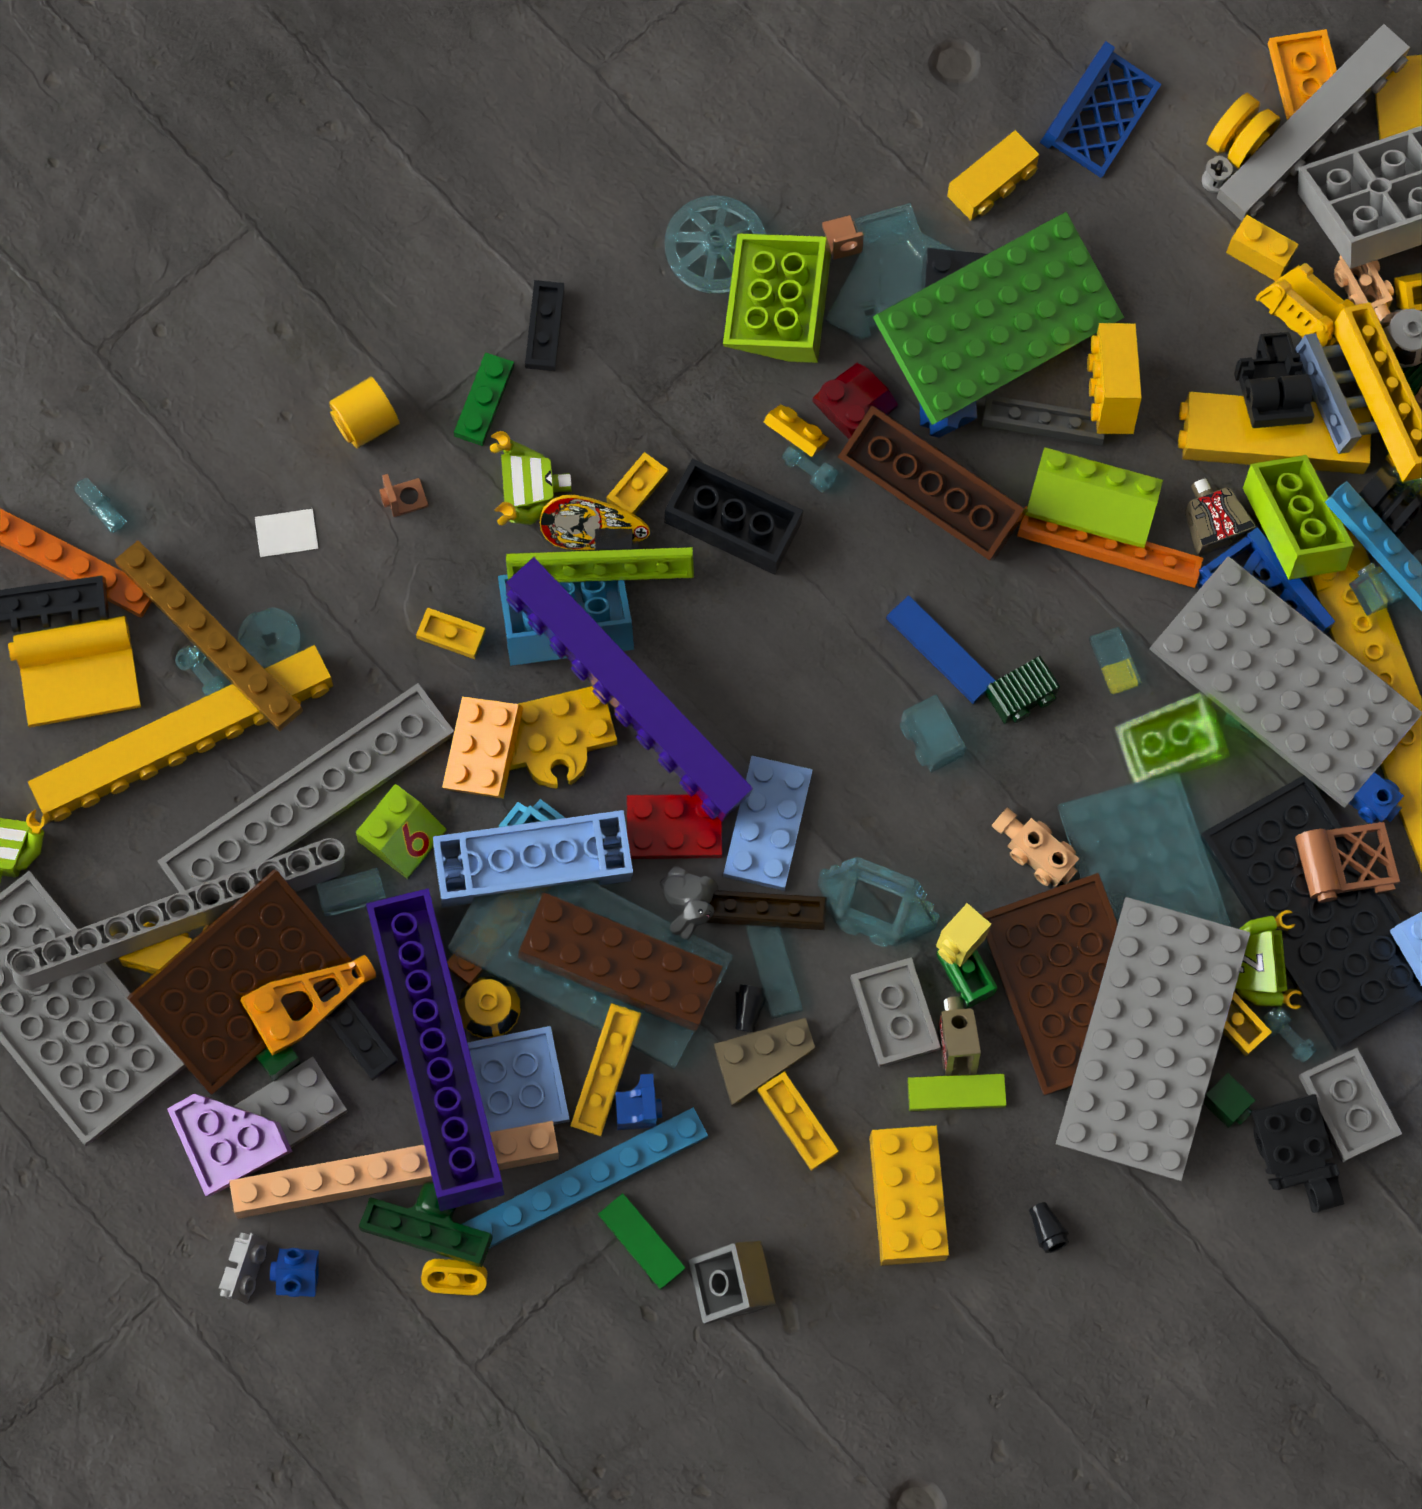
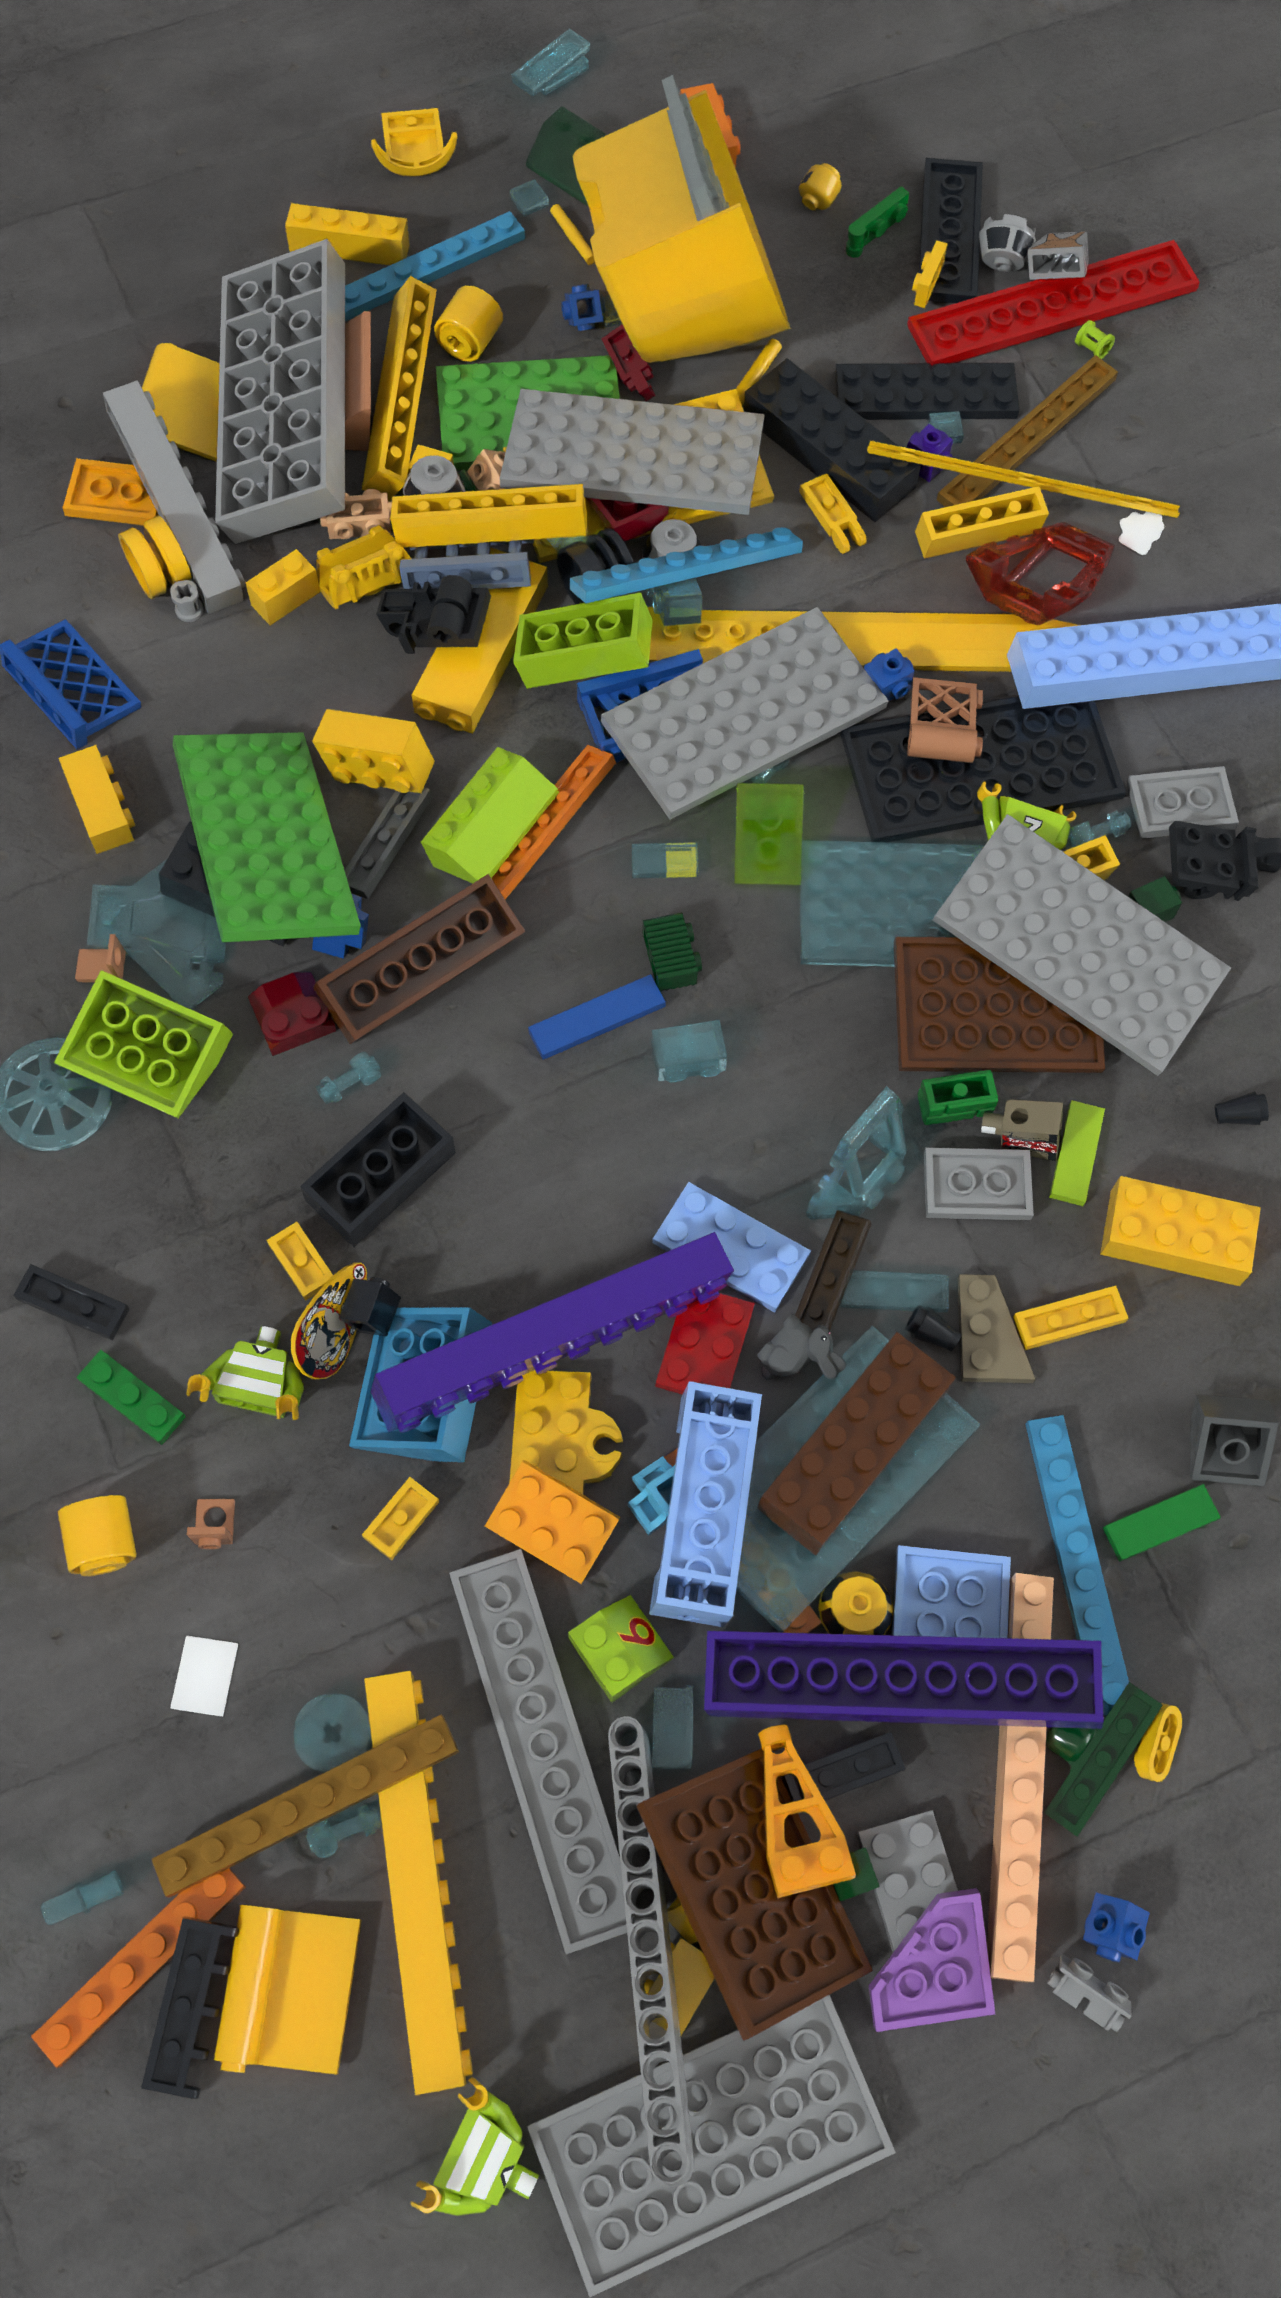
camera: 70 degrees left, 5 degrees down
(606, 1069) = (965, 1499): yellow tile -> none
(610, 564) = (385, 1324): lime tile -> none
(638, 1106) = (1014, 1476): blue brick -> none
(796, 430) = (294, 1082): yellow plate -> none
(962, 935) = (939, 1075): light yellow brick -> none
(1040, 854) = (854, 992): light nougat brick -> none
(1215, 518) = (549, 720): torso -> none

